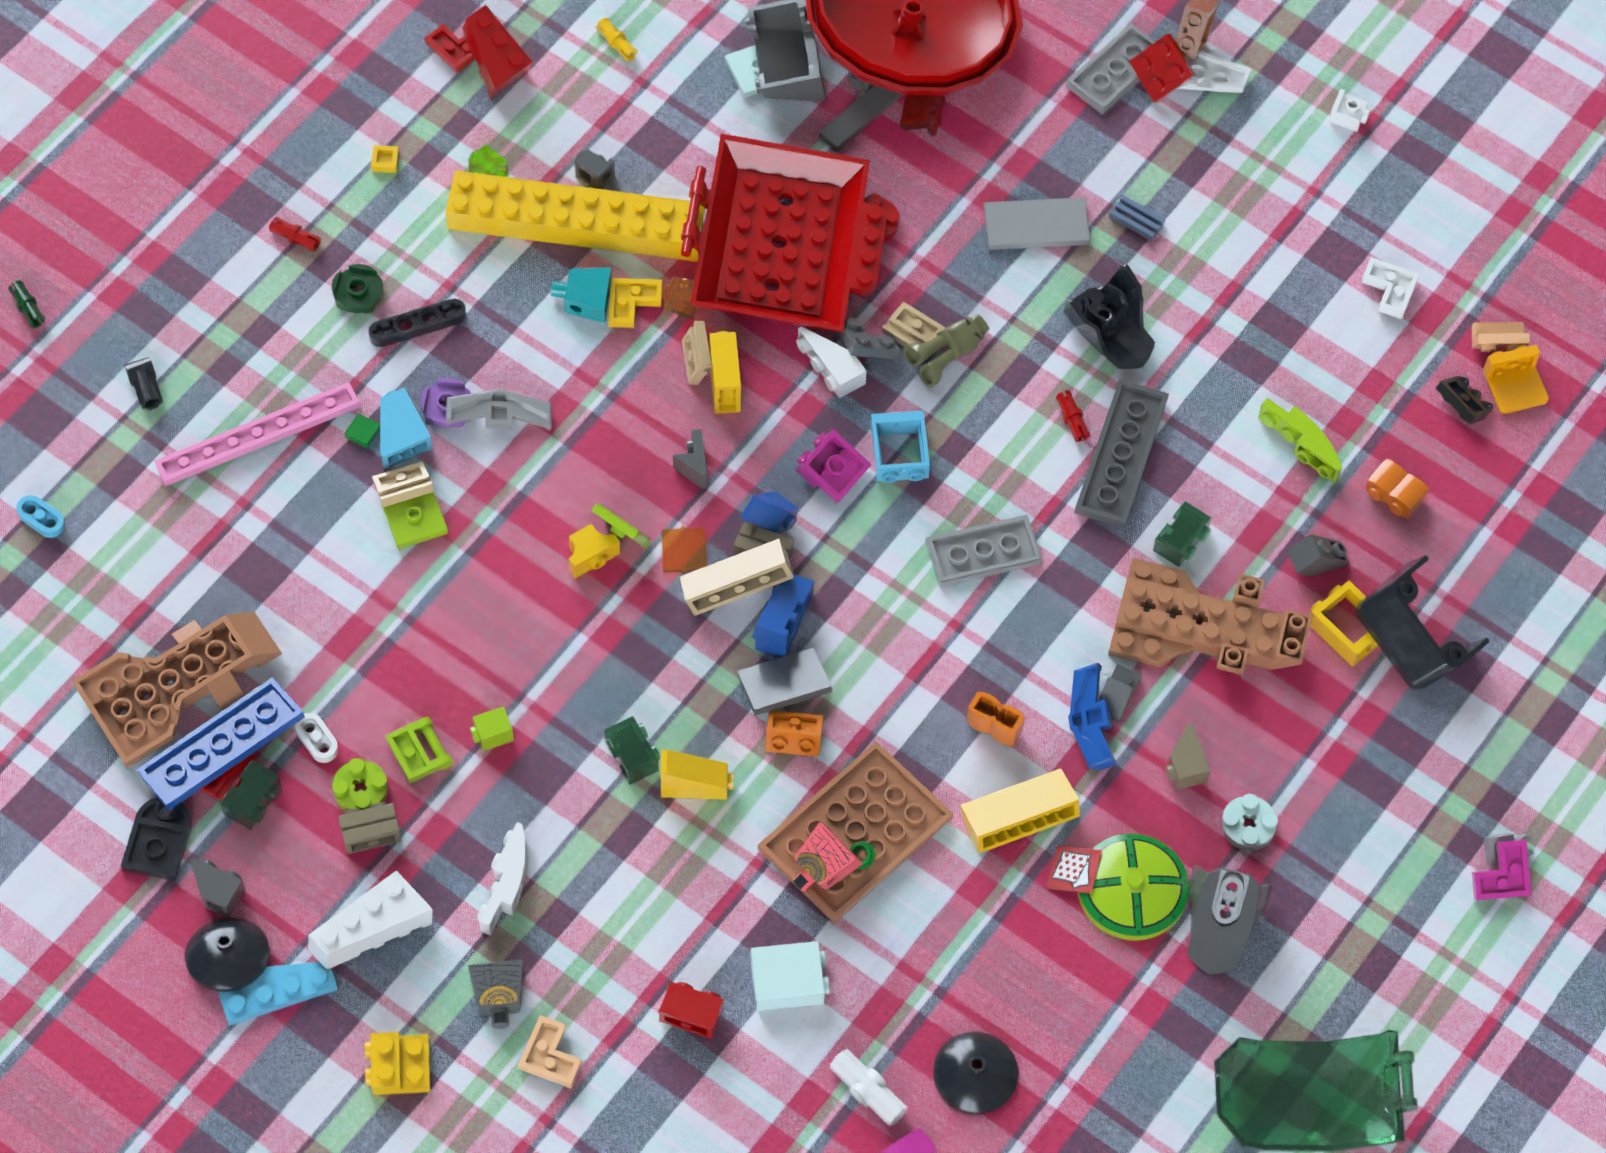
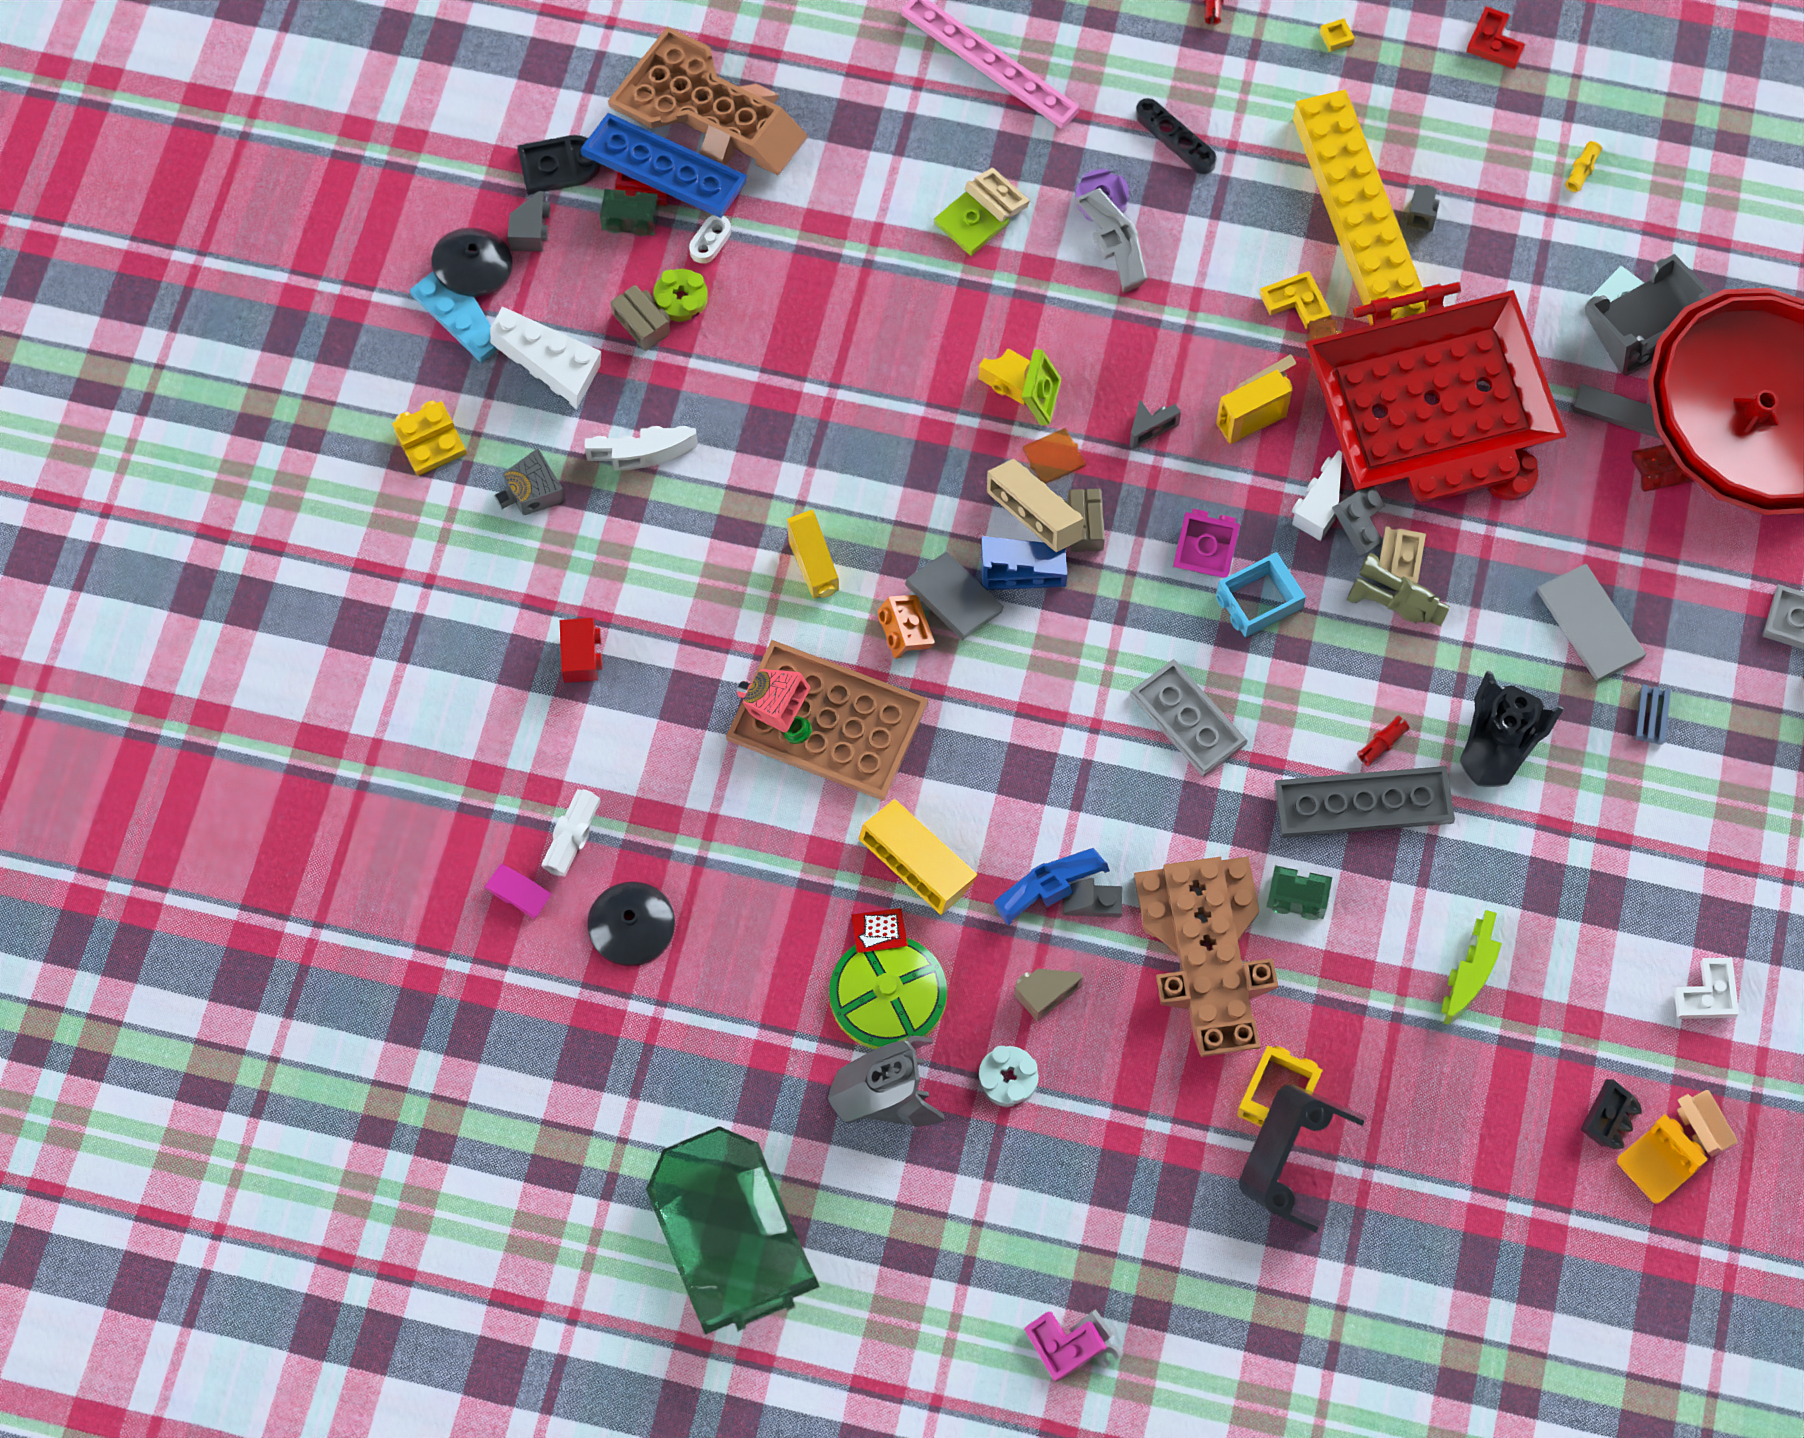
camera: 70 degrees right, 5 degrees up
(357, 301) = (1176, 84): dark green plate -> none
(362, 430) = (1038, 141): green tile -> none
(401, 429) = (1052, 168): medium azure slope -> none
(411, 754) = (731, 318): lime plate -> none
(488, 162) = (1375, 118): clear neon green brick -> none
(492, 729) = (785, 372): lime brick -> none
(495, 51) = (1498, 67): red wedge -> none
(542, 1054) = (486, 546): light nougat plate -> none
(585, 292) = (1282, 255): teal torso -> none
(630, 744) = (822, 494): clear green brick -> none
(771, 512) = (1122, 507): blue slope -> none
(788, 975) = (652, 719): light aqua brick -> none
(999, 720) = (1001, 794): orange brick -> none
(1318, 555) = (1342, 1033): dark grey slope -> none
(1396, 488) = (1462, 1083): orange brick -> none

